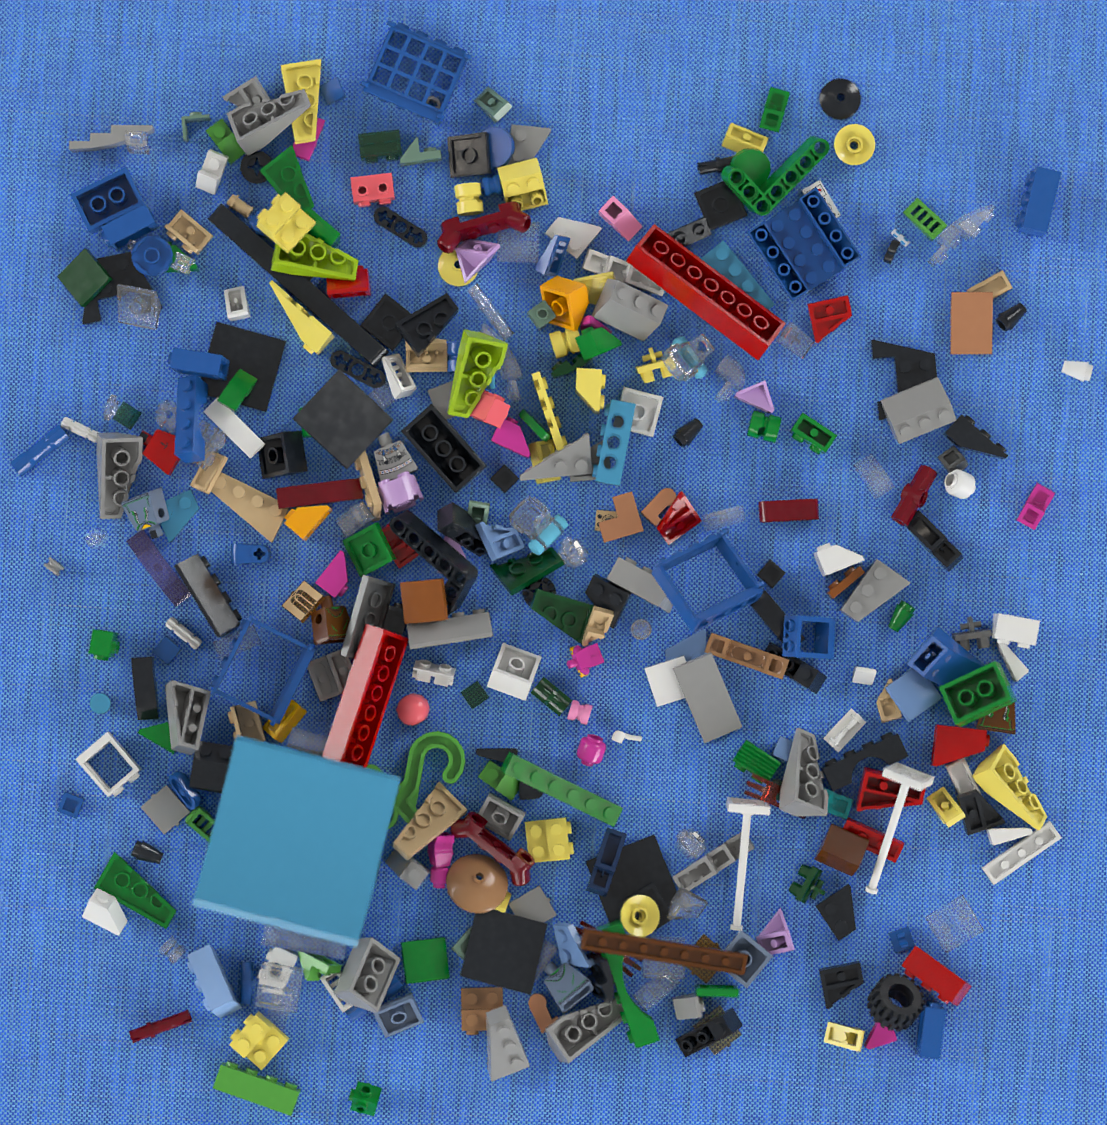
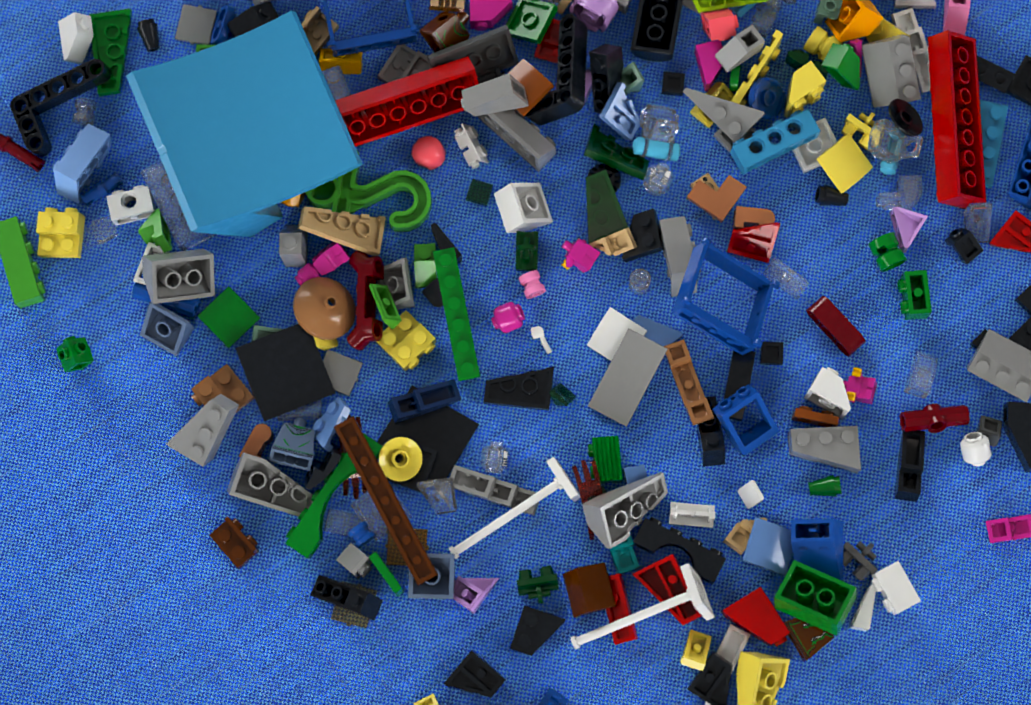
camera: 60 degrees right, 10 degrees down
(142, 966) = (53, 99): none -> black beam
(279, 987) = (115, 213): clear slope -> none
(419, 633) = (494, 96): none -> light grey slope
(511, 836) = (385, 305): none -> bright green slope
(524, 413) = (740, 48): none -> light grey slope
(574, 418) = (767, 96): none -> blue tile
(602, 1084) = (234, 542): none -> reddish brown bracket
(654, 783) = (522, 390): none -> black wing
(671, 402) = (844, 163): none -> light yellow slope
(673, 987) = (361, 534): none -> blue wheel
(675, 331) = (905, 117): none -> black dish
(681, 755) = (561, 395): none -> slope
(802, 363) = (964, 244): none -> black bracket
(848, 532) = (860, 388): none -> dark pink piece

